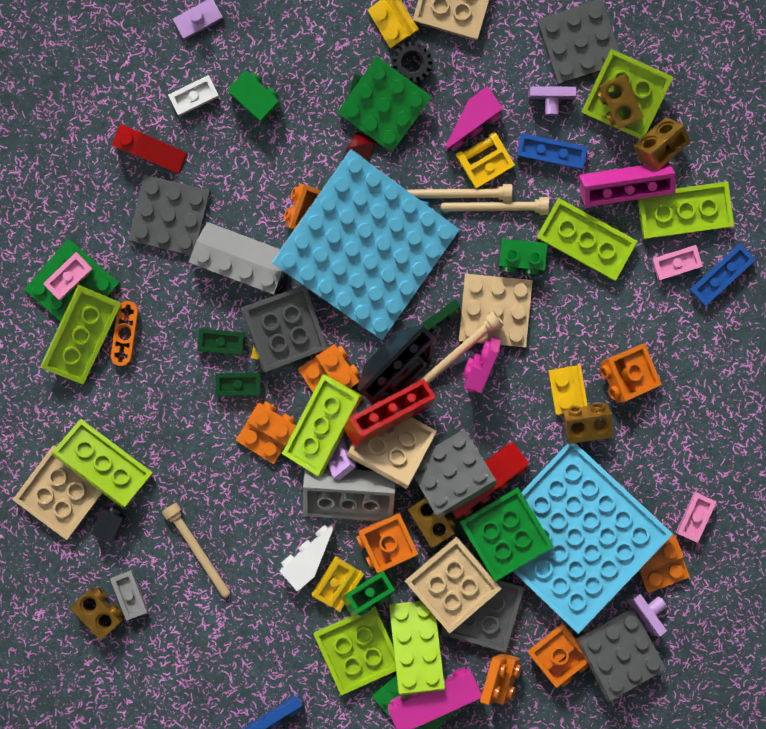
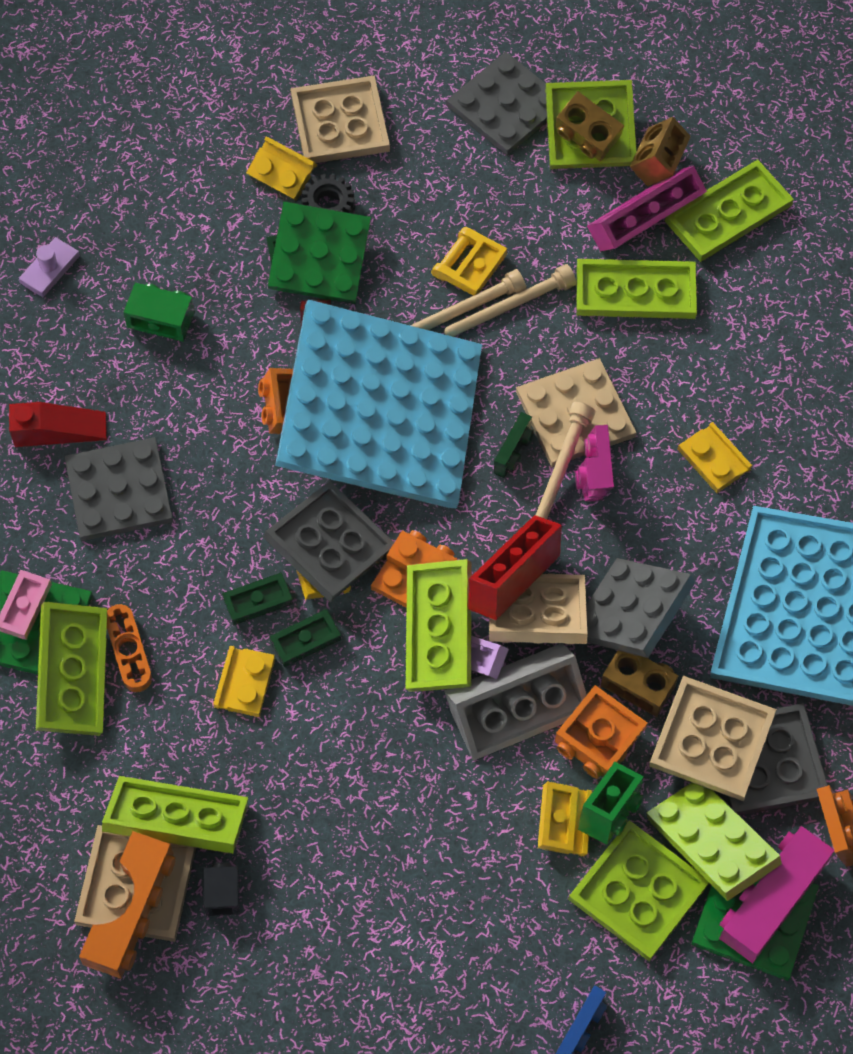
camera: 25 degrees left, 25 degrees down
(24, 530) = (112, 944): none -> orange arch
(93, 616) = (258, 1024): pearl gold brick -> none
(129, 595) = (295, 971): light grey plate -> none
(173, 514) = (303, 838): tan piece -> none
(187, 392) = (244, 681): none -> yellow plate
(193, 95) = (84, 345): white plate -> none
(237, 258) = (231, 497): light grey slope -> none
(267, 431) = (372, 677): orange plate -> none
(304, 565) = (510, 811): white slope -> none
(397, 363) = (493, 509): black wedge -> none
(477, 112) = (433, 214): dark pink slope -> none
(503, 466) = (700, 562): red brick -> none
(506, 534) = (743, 643): green plate -> none
(523, 256) = (572, 336): green brick -> none
(551, 151) = (540, 219): blue plate -> none
(552, 96) = (507, 163): lavender tile -> none
(588, 428) = (763, 481): pearl gold brick -> none
(629, 373) = (775, 402): orange plate -> none
(677, 262) = (754, 266): bright pink plate -> none
(722, 274) = (813, 255): blue plate -> none

